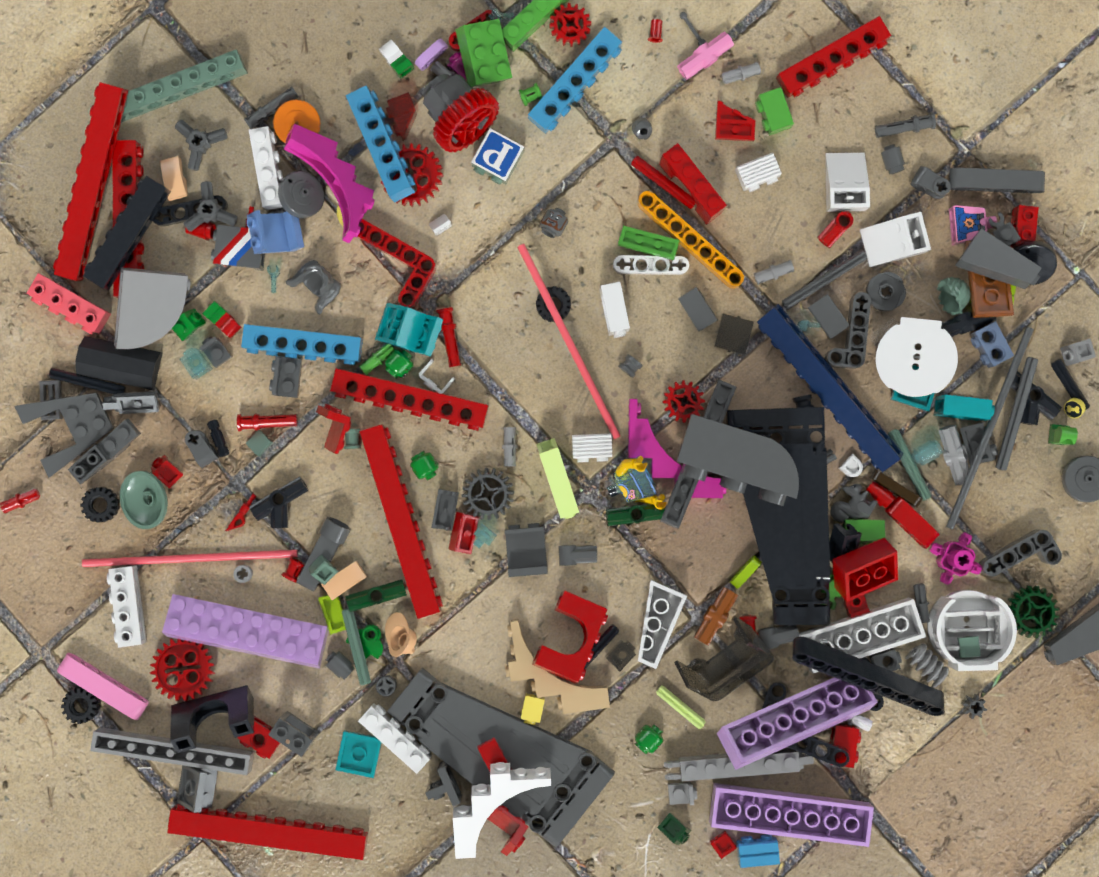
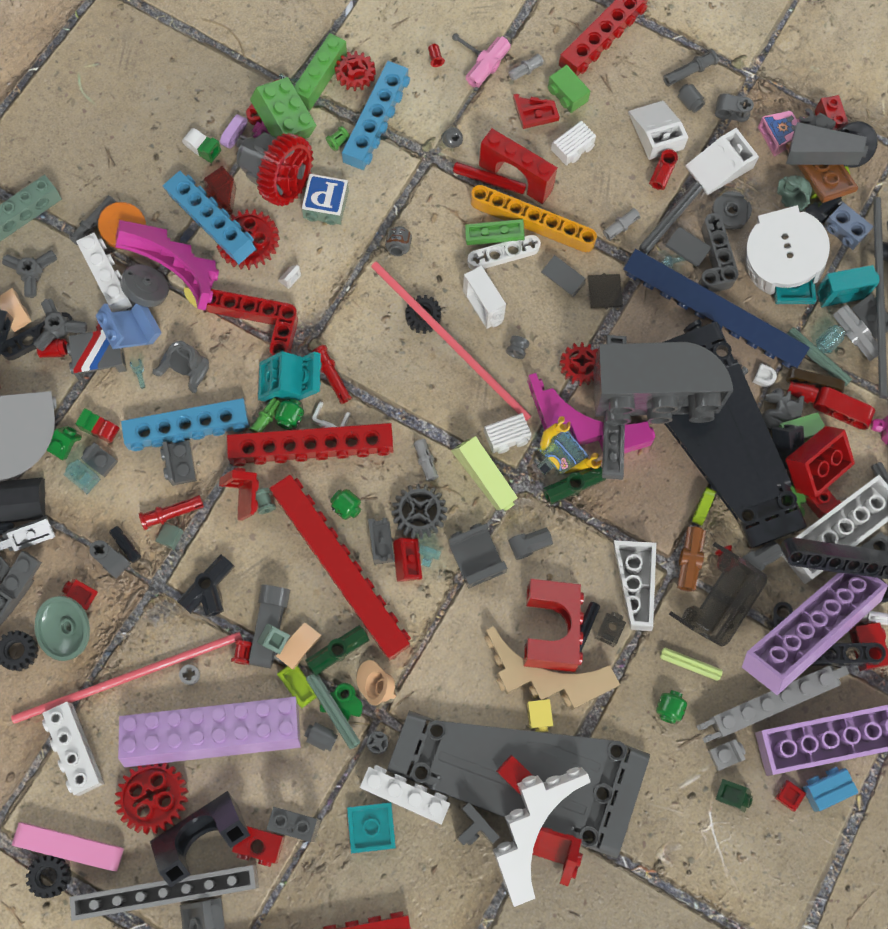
camera: 20 degrees left, 15 degrees down
(240, 515) = (170, 613): red hand -> none
(997, 180) = (791, 88): dark grey beam -> none

